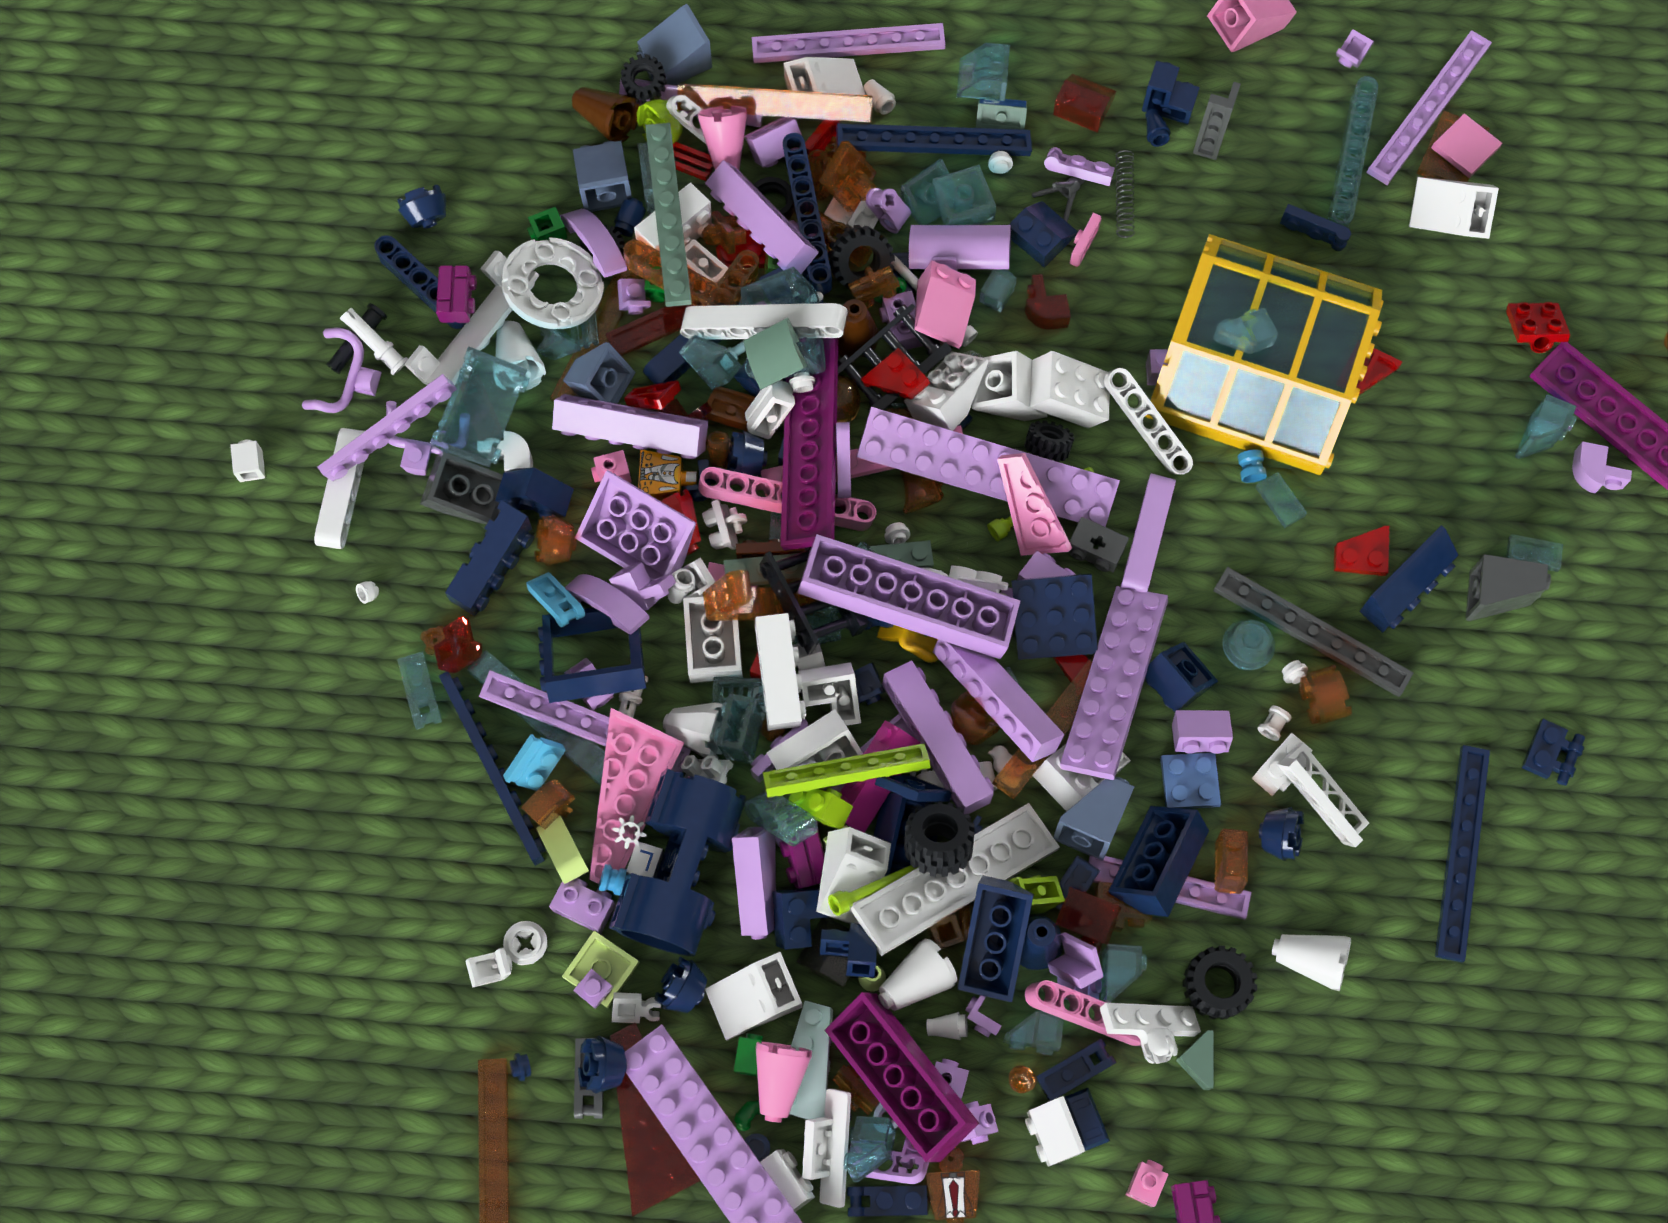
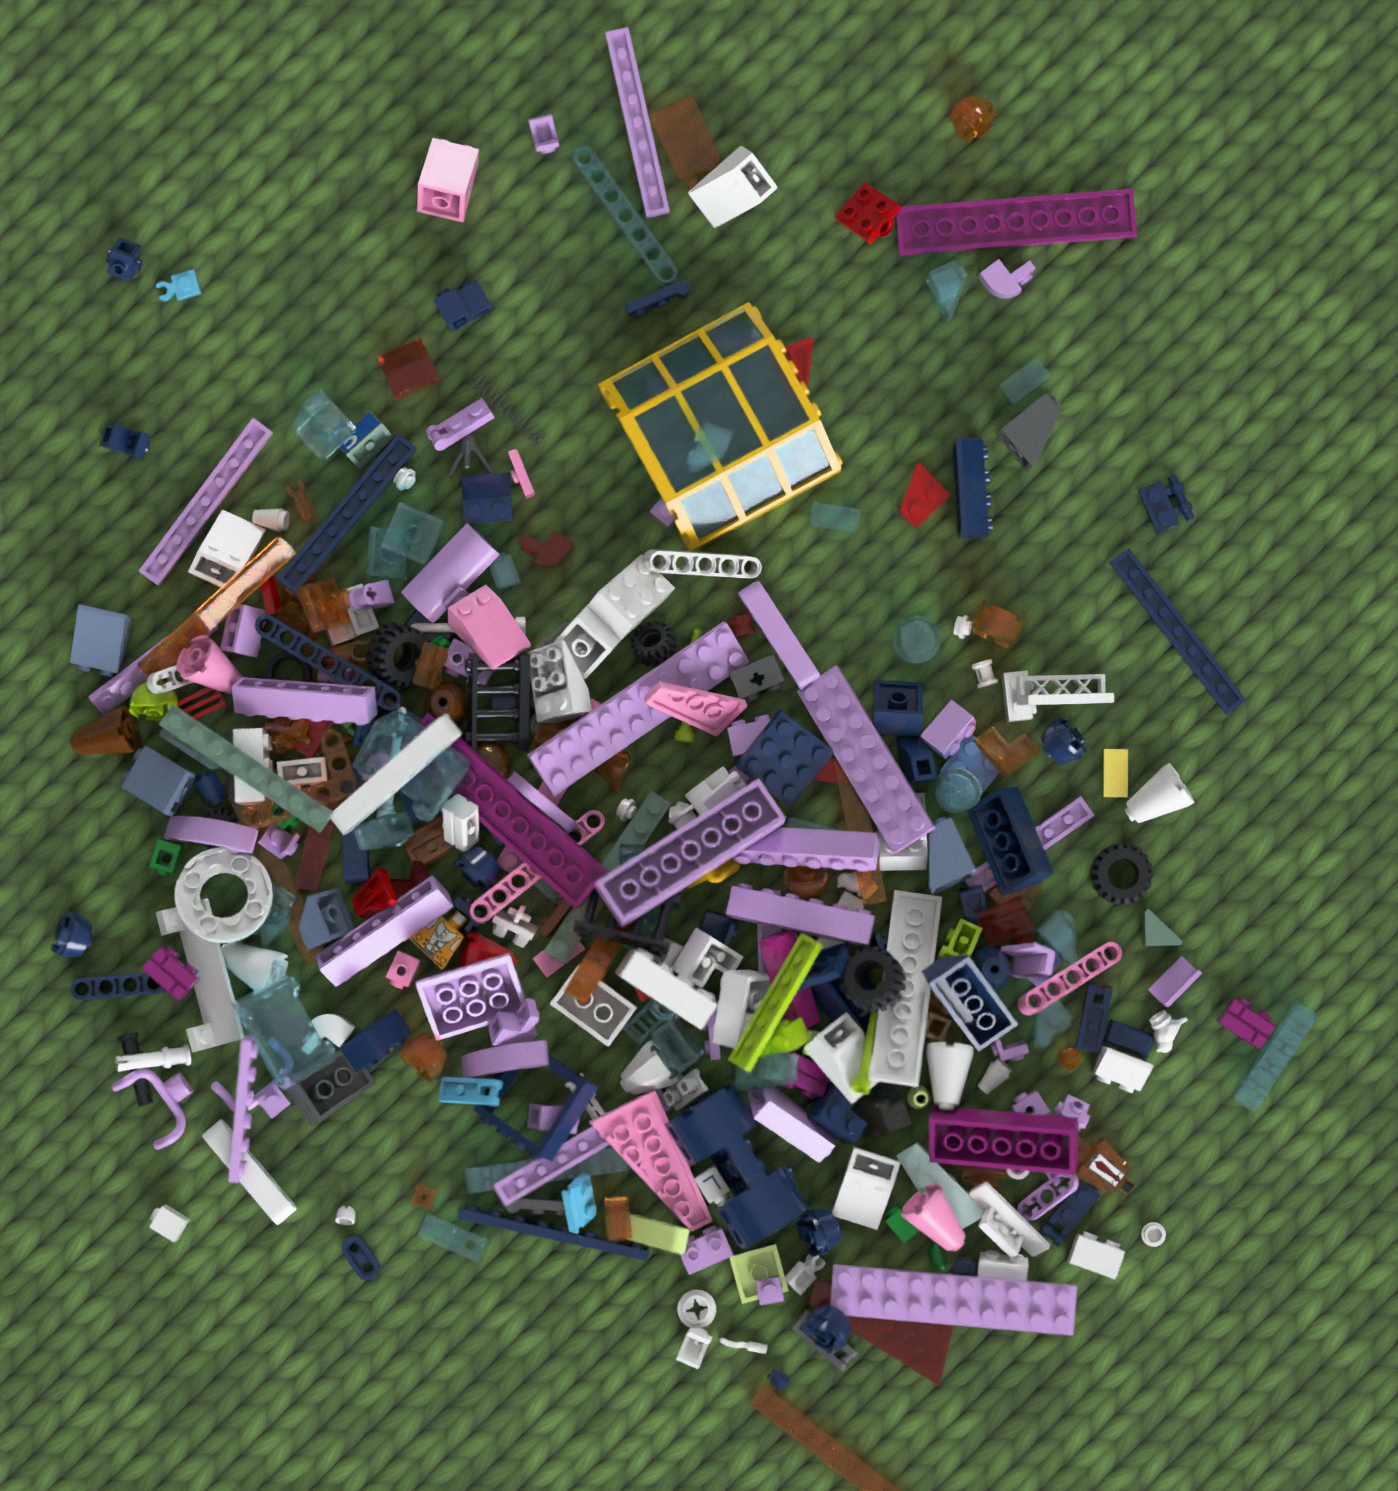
camera: 50 degrees left, 15 degrees up
(341, 632) = (361, 1257): none -> dark blue plate
(458, 647) = (449, 1186): clear red brick -> none
(491, 559) = (400, 1112): dark blue wedge -> none
(503, 733) = (537, 1205): none -> dark grey plate
(530, 1018) = (751, 1346): none -> white piece
(612, 879) = (707, 1217): dark azure wheel -> none
(621, 830) = (683, 1174): white gear -> none
(640, 65) = (110, 672): black tyre -> none
(684, 585) = (536, 991): white cone -> none
(702, 577) = (542, 978): white bracket -> none
(718, 448) = (455, 881): clear orange cone -> none
(774, 353) = (434, 794): sand green slope -> none
(802, 382) = (465, 786): white plate -> none
(855, 945) = (898, 1095): dark blue brick -> none
(870, 1146) = (1029, 1197): clear light blue slope -> none
(897, 376) = (516, 712): red wing -> none
(911, 108) = (302, 503): none -> clear orange bar
(1122, 1143) = (1165, 1030): none -> white animal
(1128, 499) = (742, 625): none -> clear red wheel
(1147, 1183) = (1203, 1037): bright pink brick -> none
(1150, 727) = (915, 760): none -> dark blue slope
(1153, 1025) = (1112, 947): white plate -> none
(1157, 130) = (478, 338): dark blue cone -> none
(1160, 780) = (957, 789): none -> clear light blue cone
(1170, 1114) = (1174, 981): none -> lavender panel
(1215, 123) = (524, 306): dark grey fence -> none
(1224, 796) = (1006, 756): none -> clear orange plate
(1231, 861) = (1051, 792): clear orange brick -> none
(1252, 466) = (794, 516): dark azure wheel -> none
(1297, 905) = (1115, 773): none -> light yellow tile
(1313, 632) = (945, 587): dark grey plate -> none
(1466, 145) = (692, 128): bright pink tile -> none

